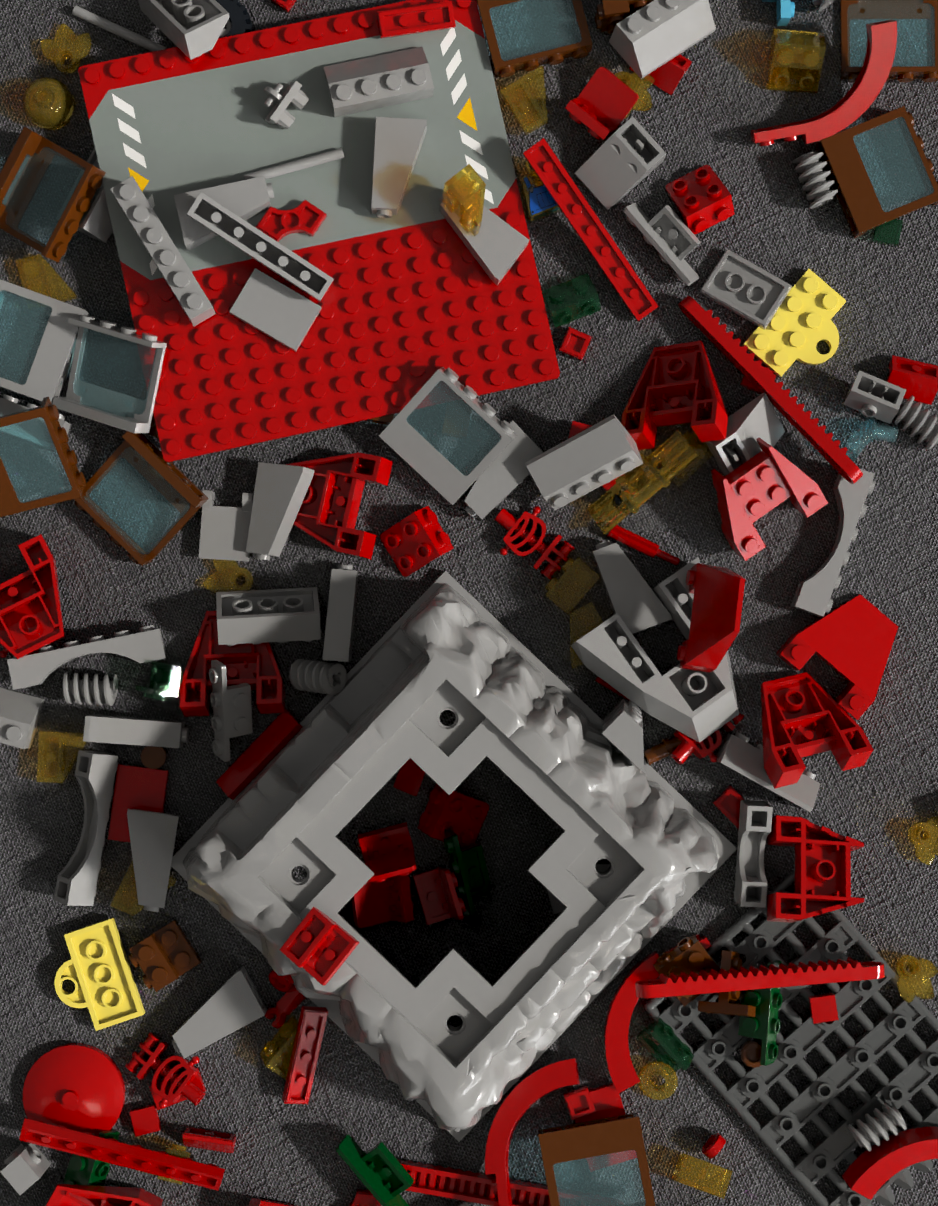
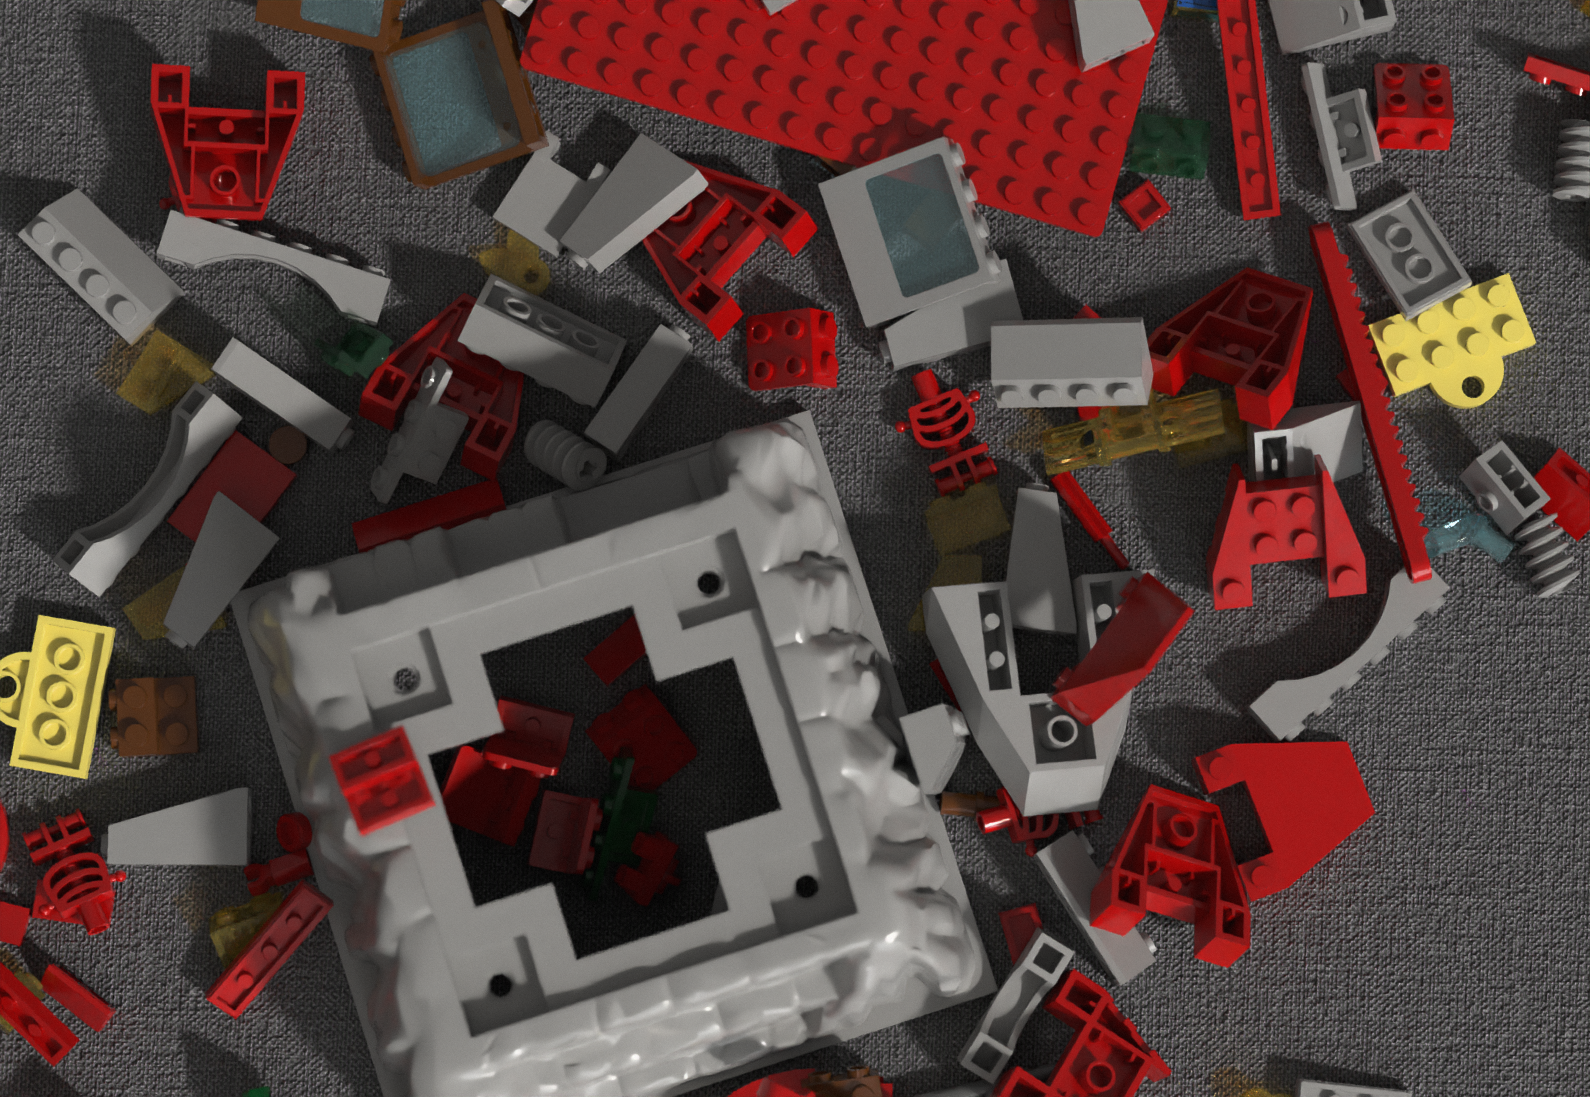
camera: 25 degrees right, 5 degrees down
(89, 690) = (254, 311): light grey piece -> none
(502, 888) = (654, 870): none -> red hips

